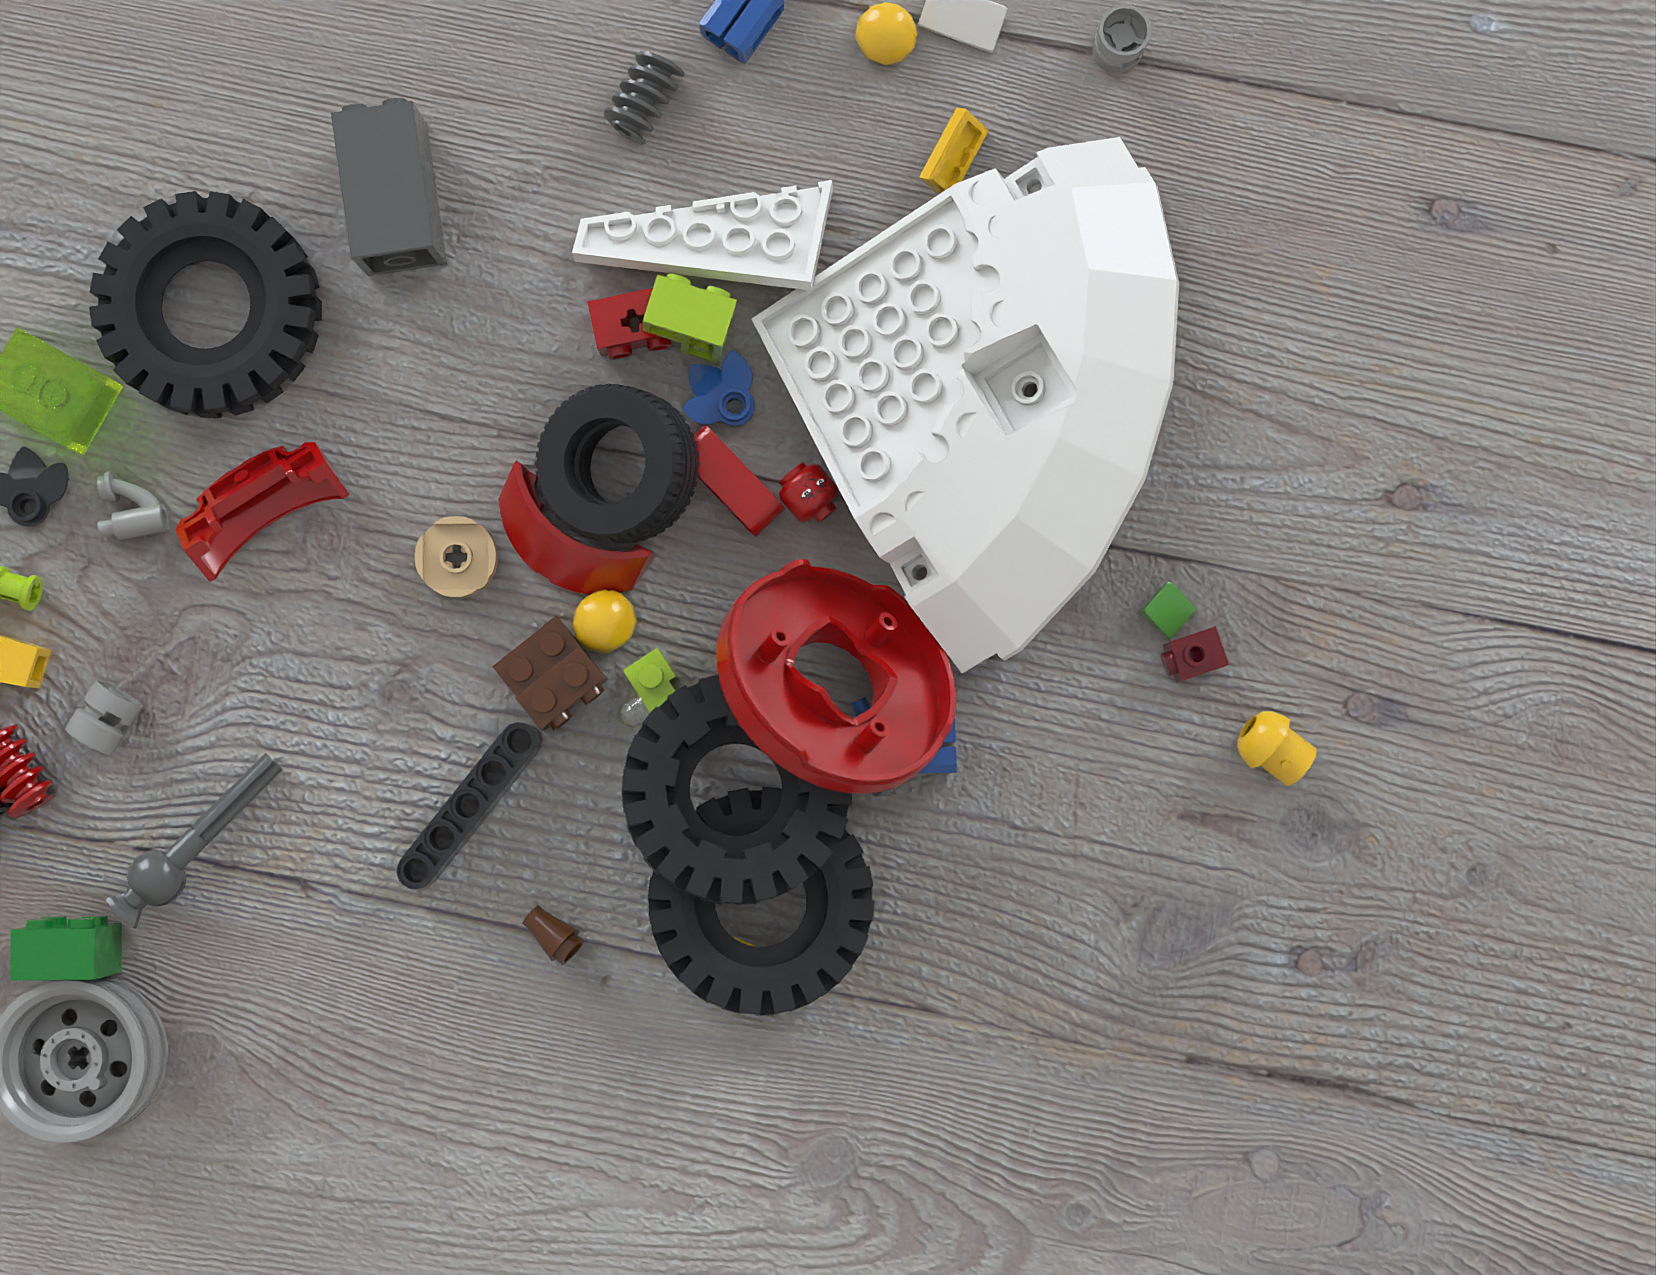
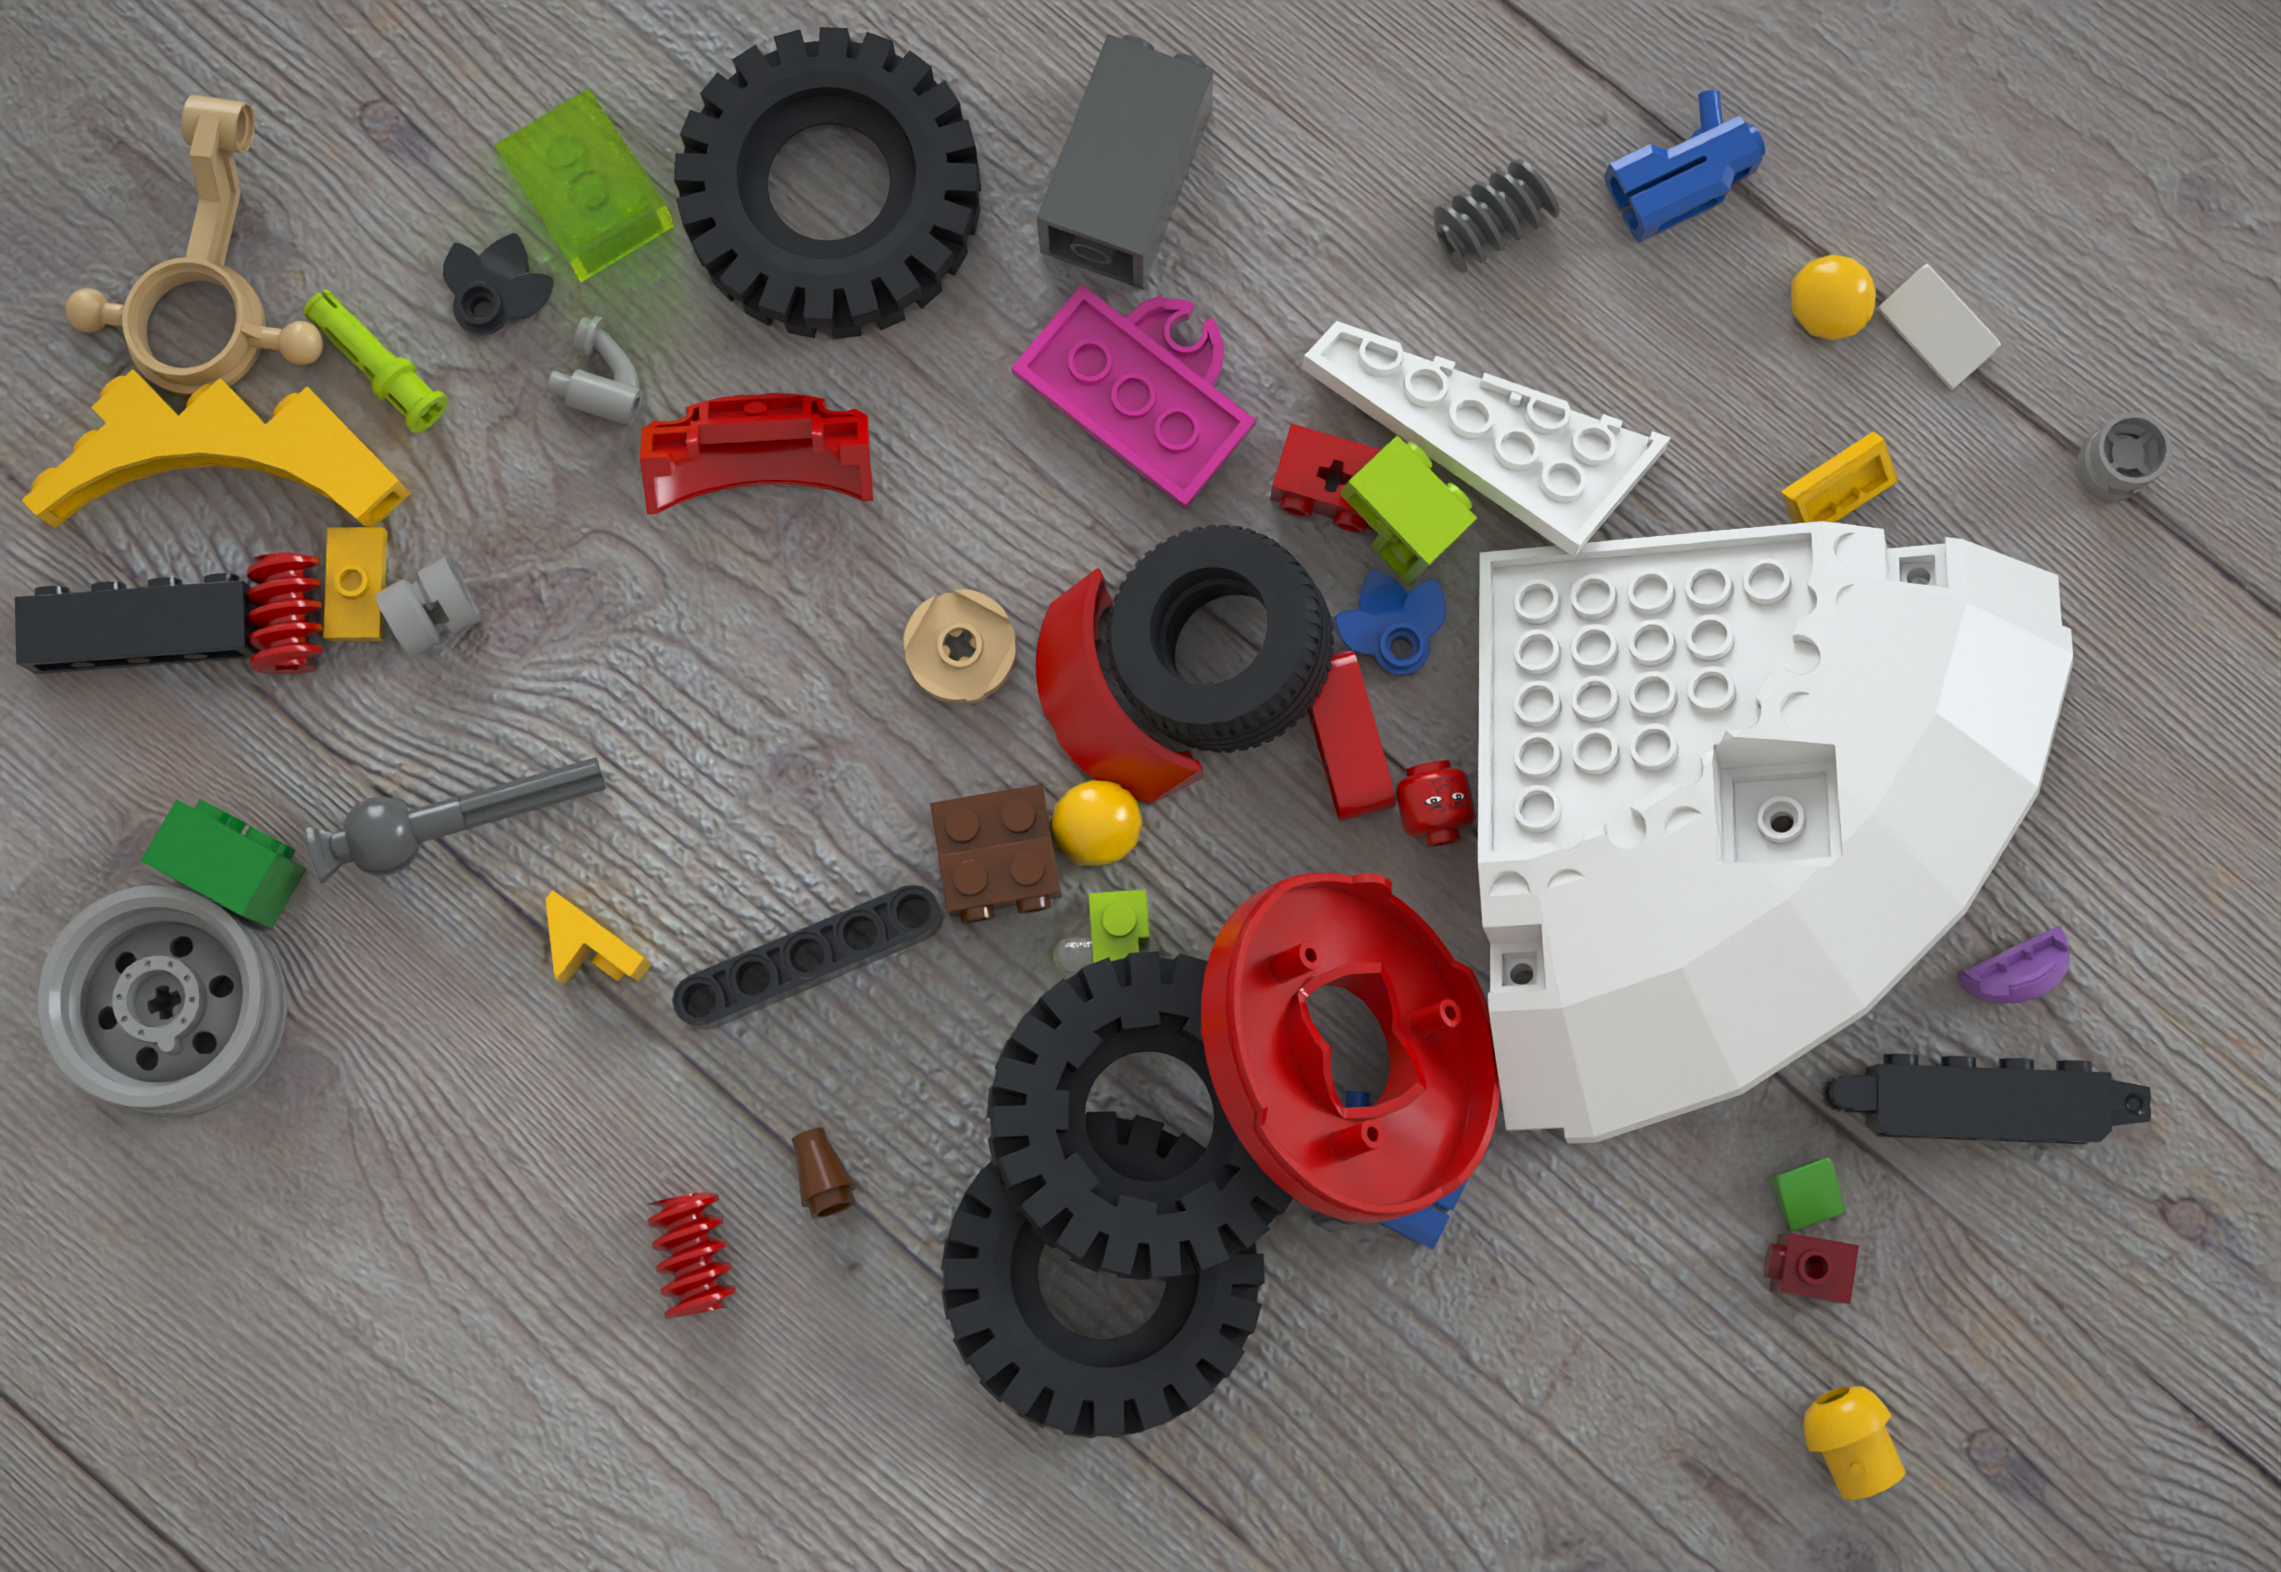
camera: 30 degrees right, 5 degrees down
(45, 724) = (353, 575): none -> yellow plate
(315, 873) = (576, 935): none -> yellow slope
(479, 330) = (1139, 388): none -> dark pink plate
(499, 1029) = (691, 1254): none -> red piece
(1226, 400) = (2021, 971): none -> medium lavender plate
(1248, 493) = (1989, 1103): none -> black hinge

